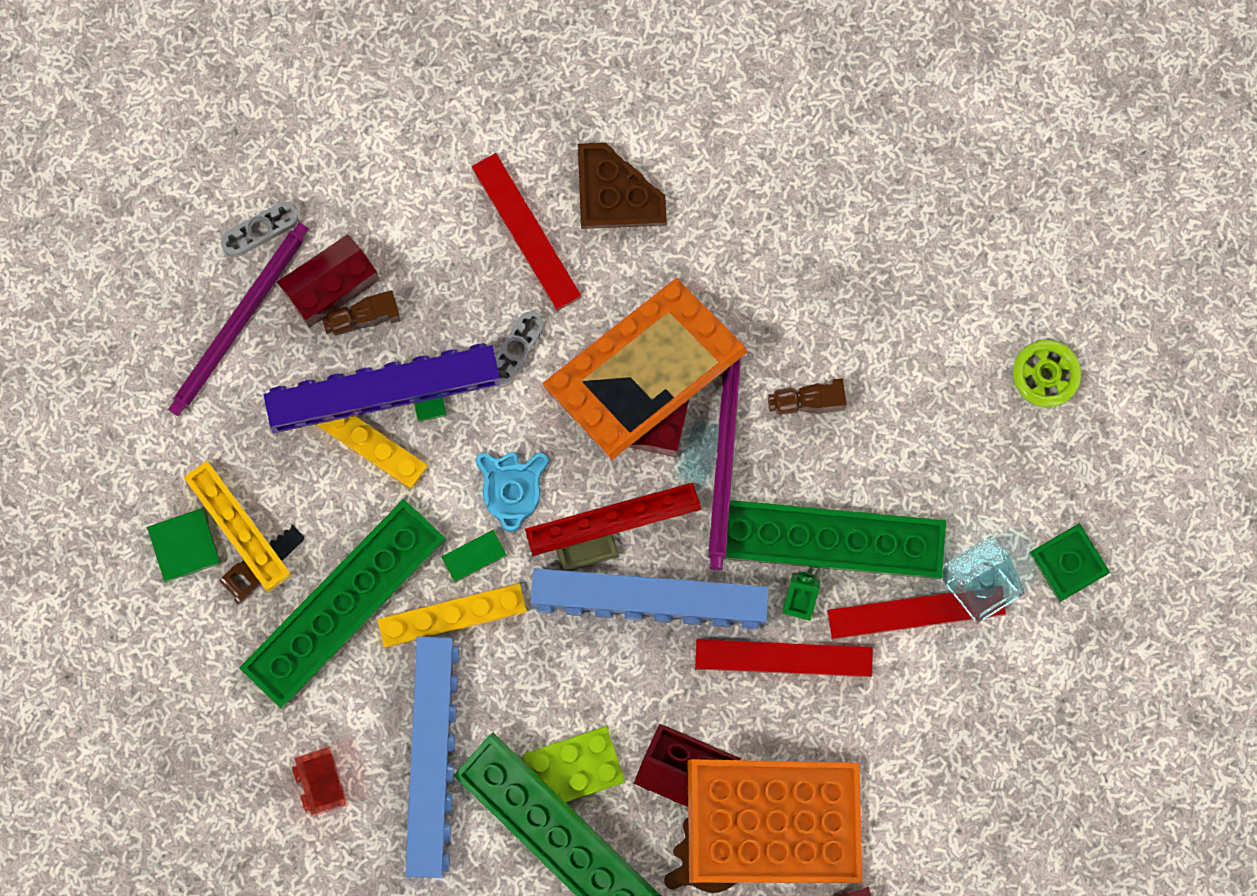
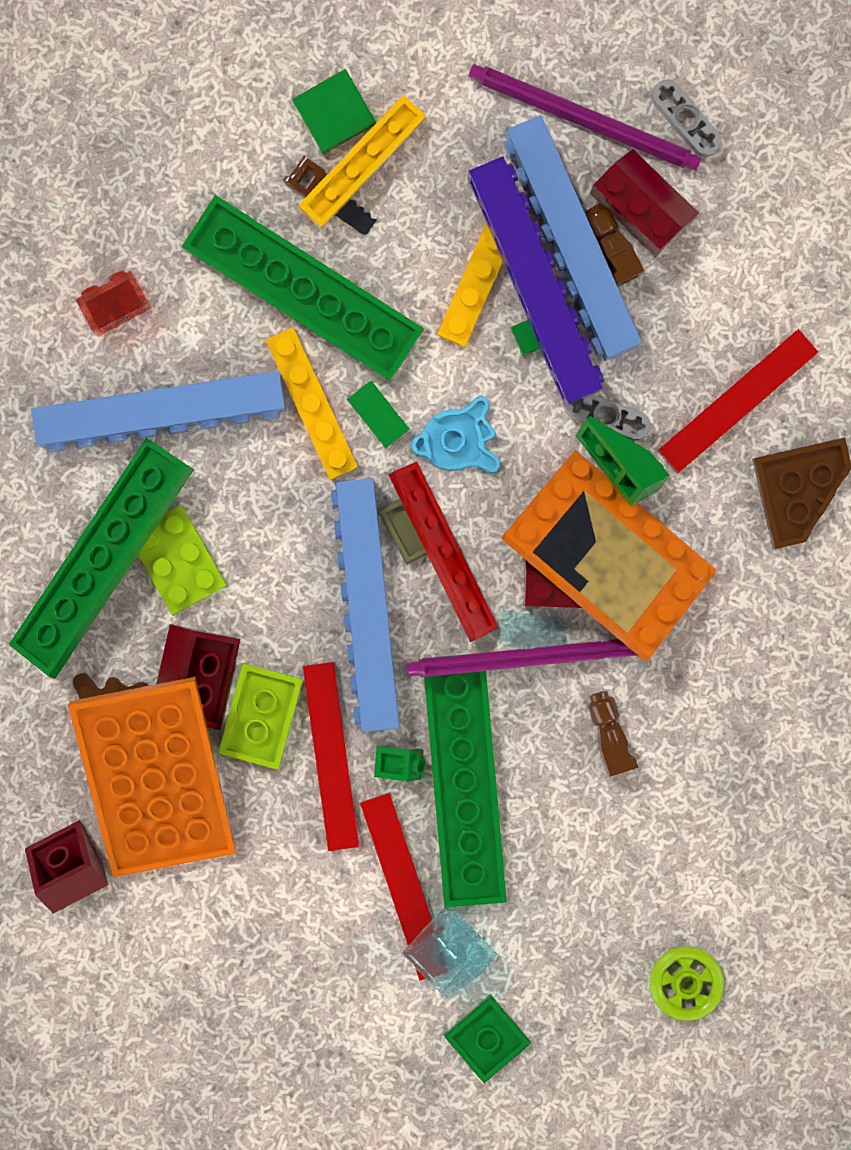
camera: 80 degrees right, 10 degrees up
(348, 349) = (572, 238): none -> medium blue brick
(562, 340) = (626, 463): none -> green slope
(734, 715) = (260, 716): none -> lime plate

